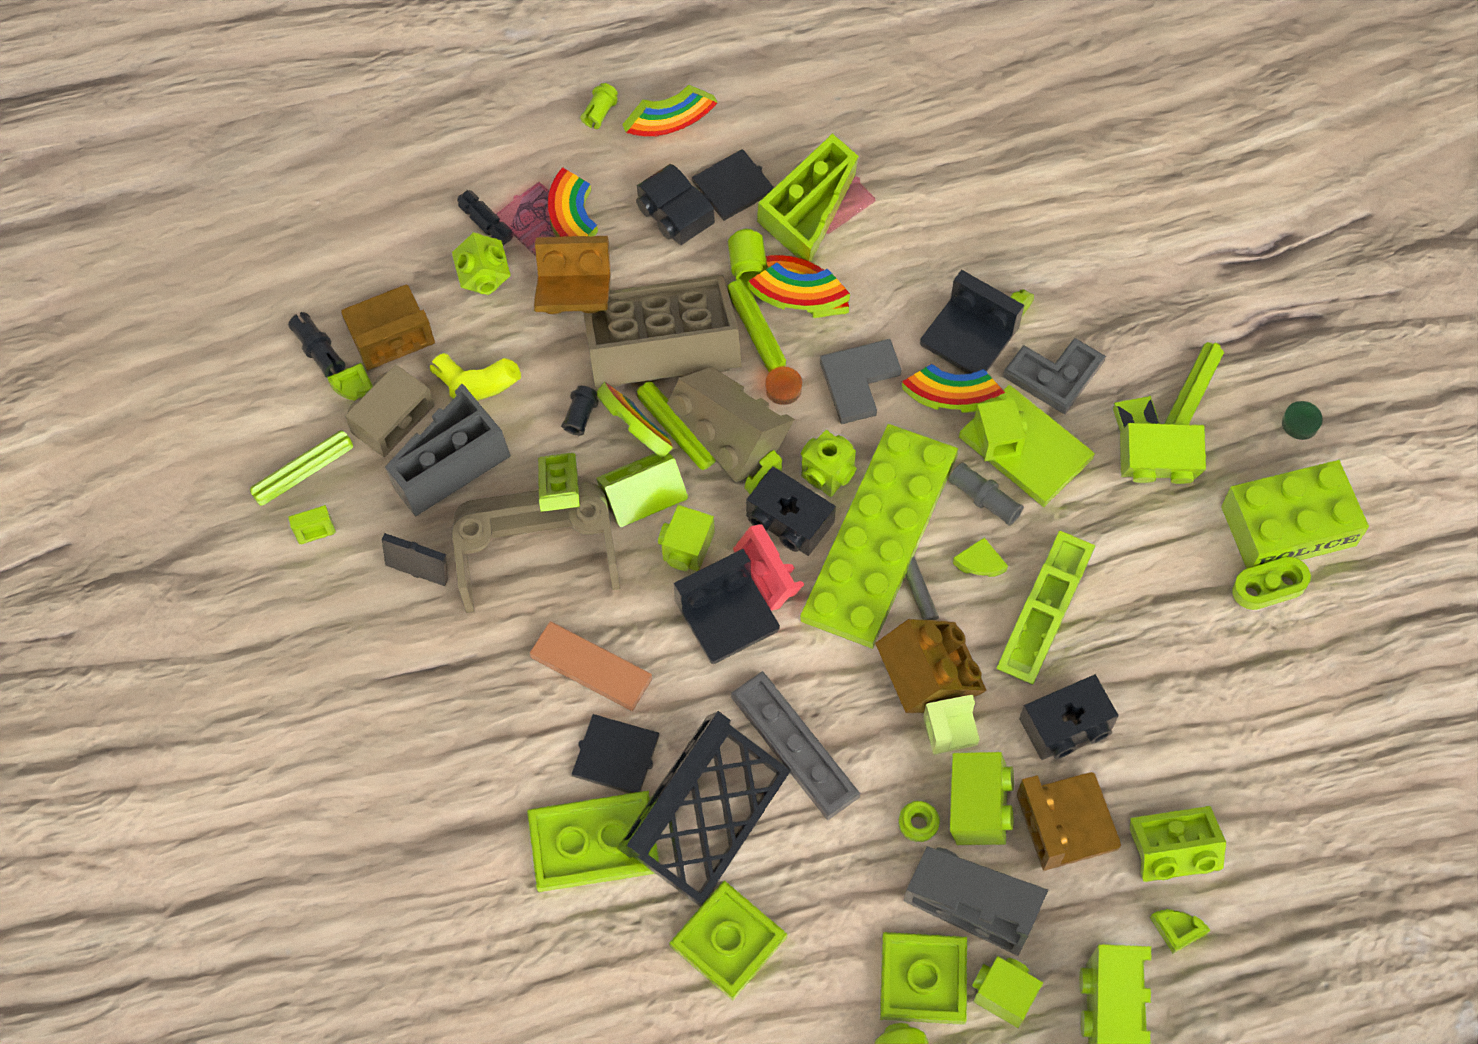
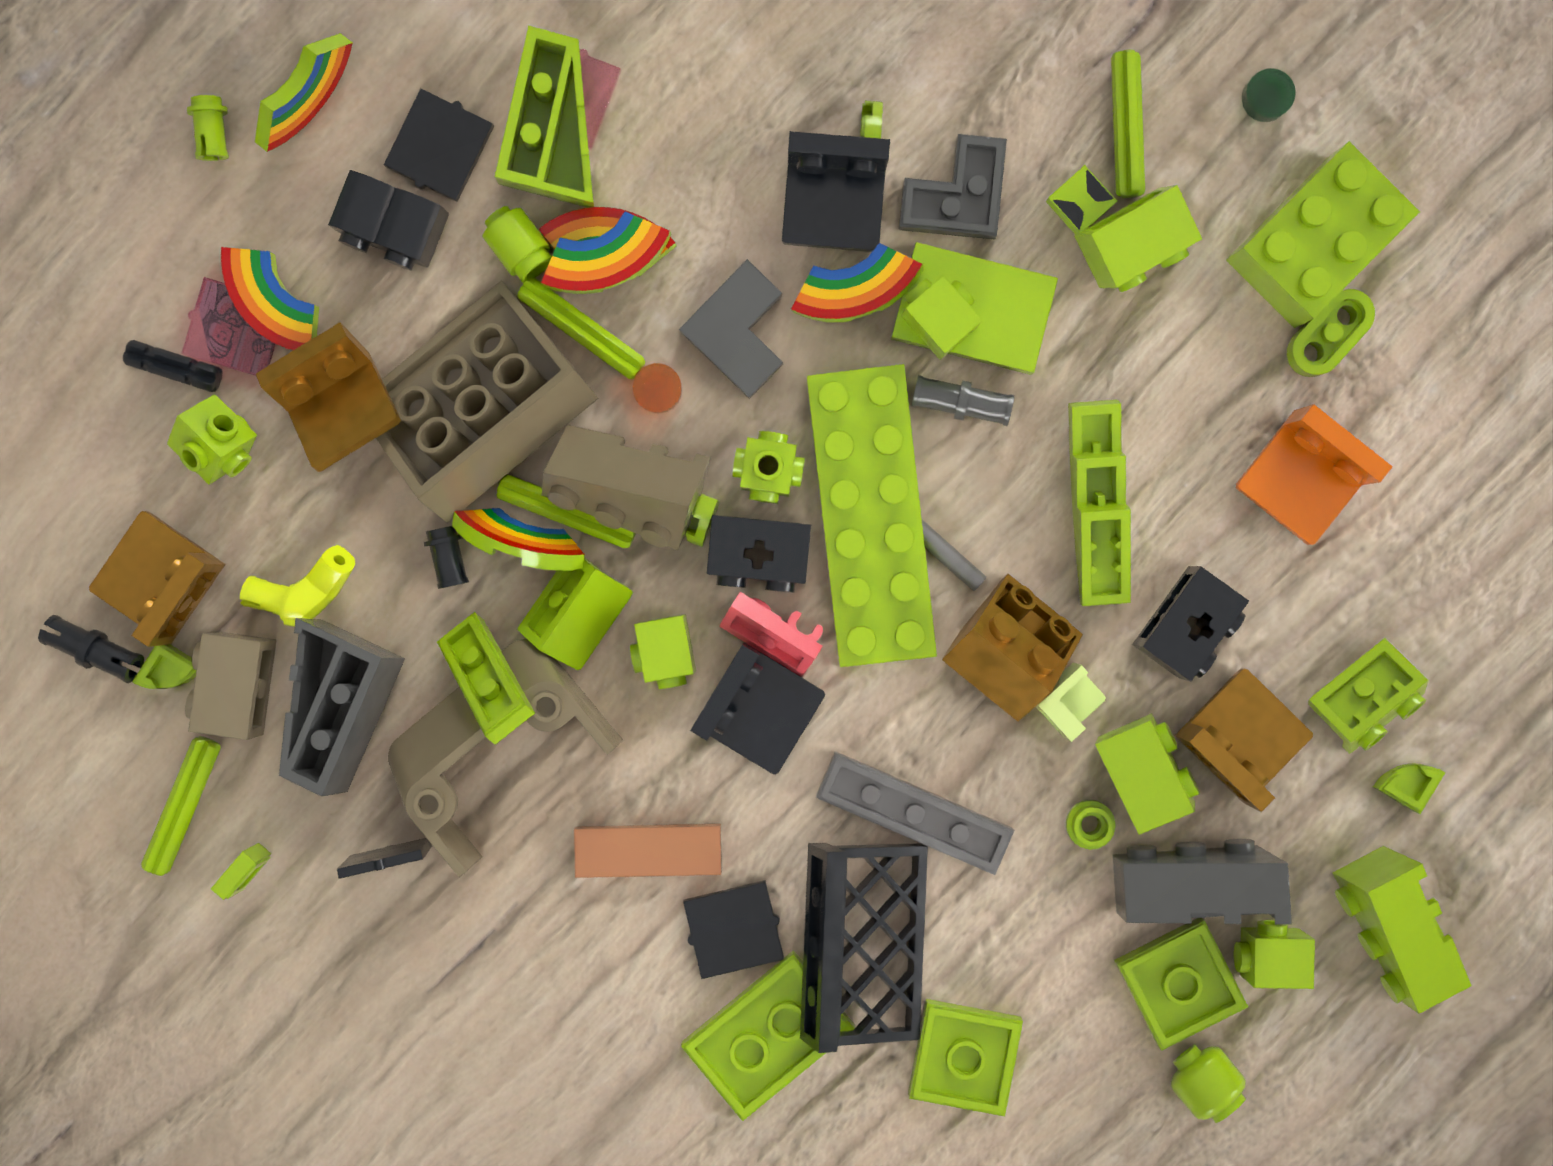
camera: 30 degrees left, 25 degrees up
(980, 560) = (997, 484): lime tile -> none
(1211, 664) = (1310, 473): none -> orange bracket

